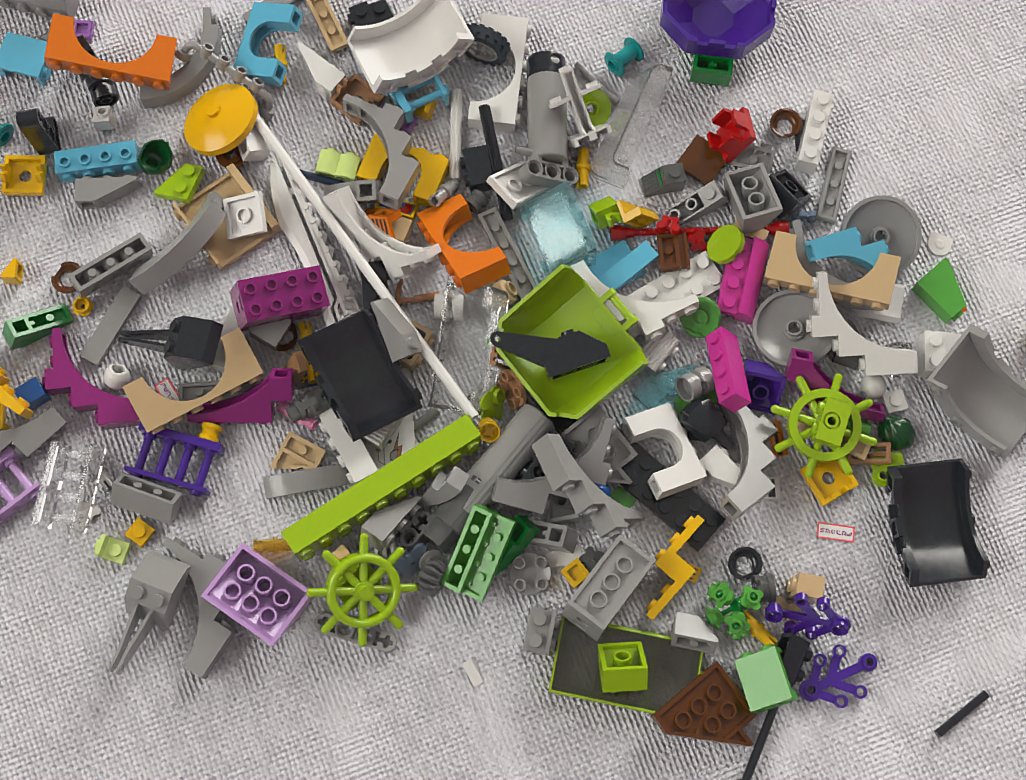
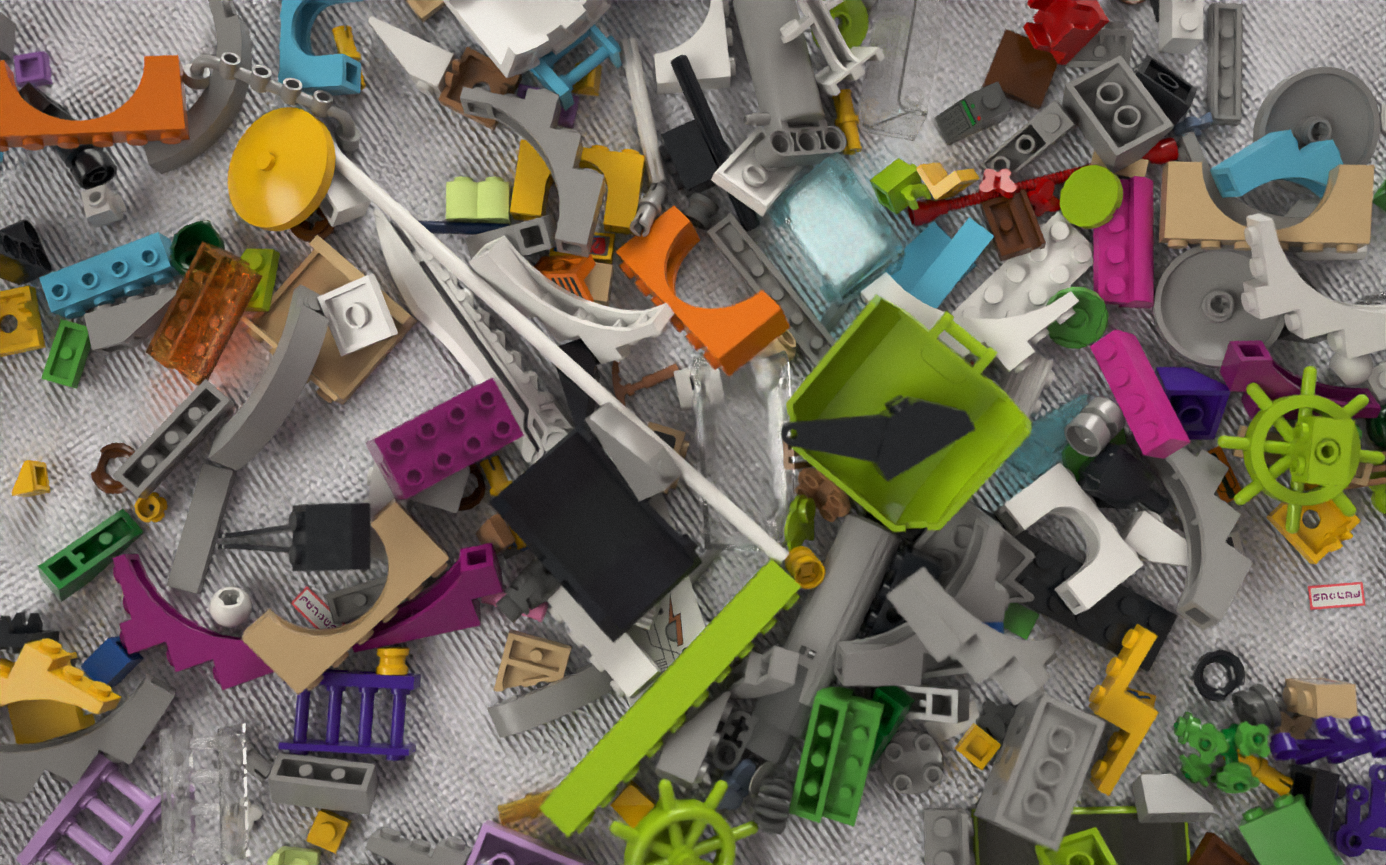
camera: 10 degrees left, 10 degrees up
(57, 202) = (67, 354): none -> bright green plate
(149, 193) = (204, 313): none -> clear orange brick

